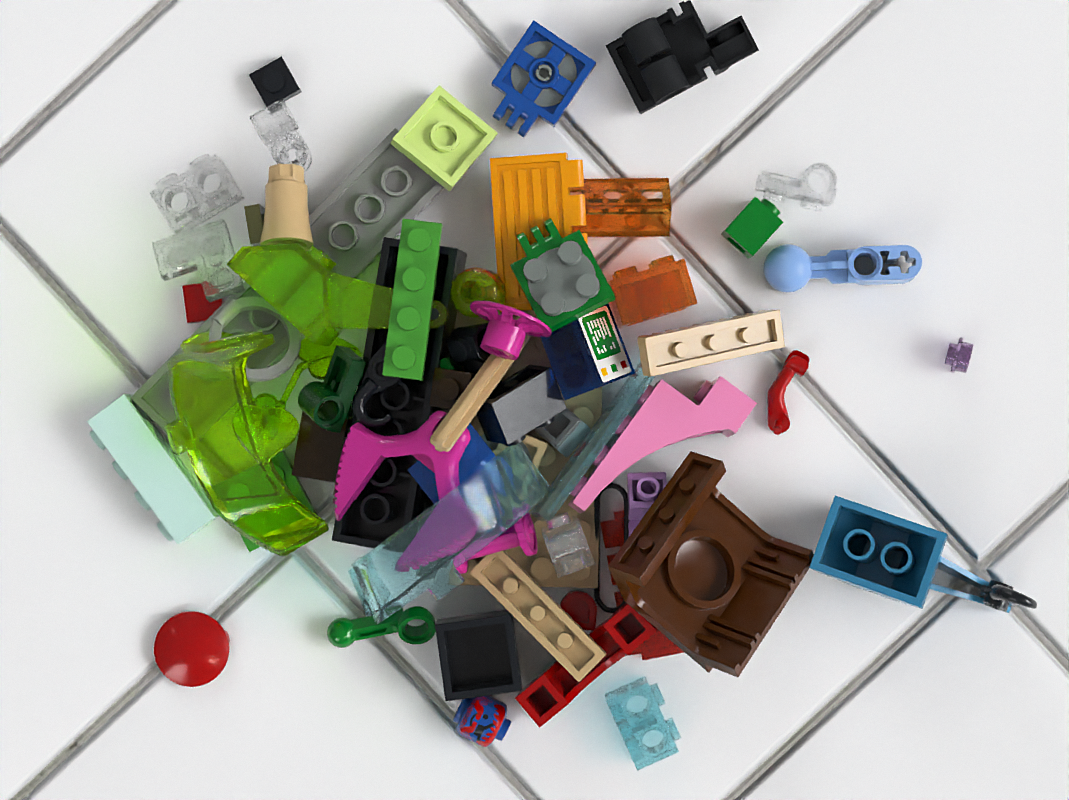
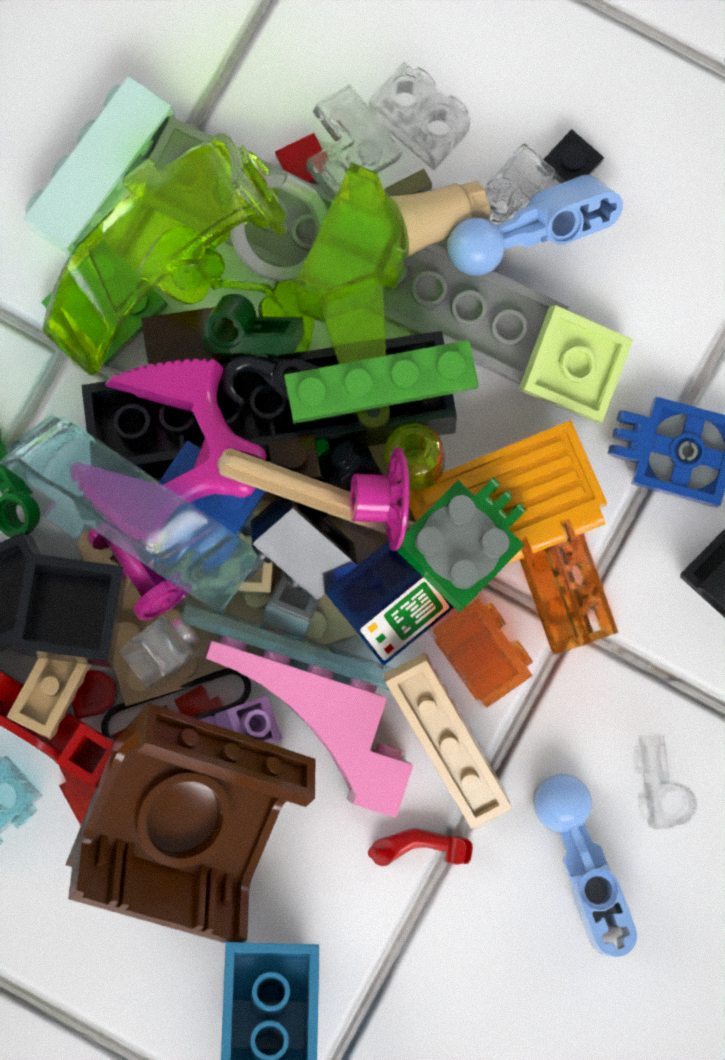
camera: 70 degrees right, 5 degrees down
(316, 112) = (553, 214): none -> light blue beam
(512, 605) = (69, 610): none -> black piece
(753, 226) = (596, 746): green brick -> none
(959, 356) = (529, 1038): clear purple plate -> none

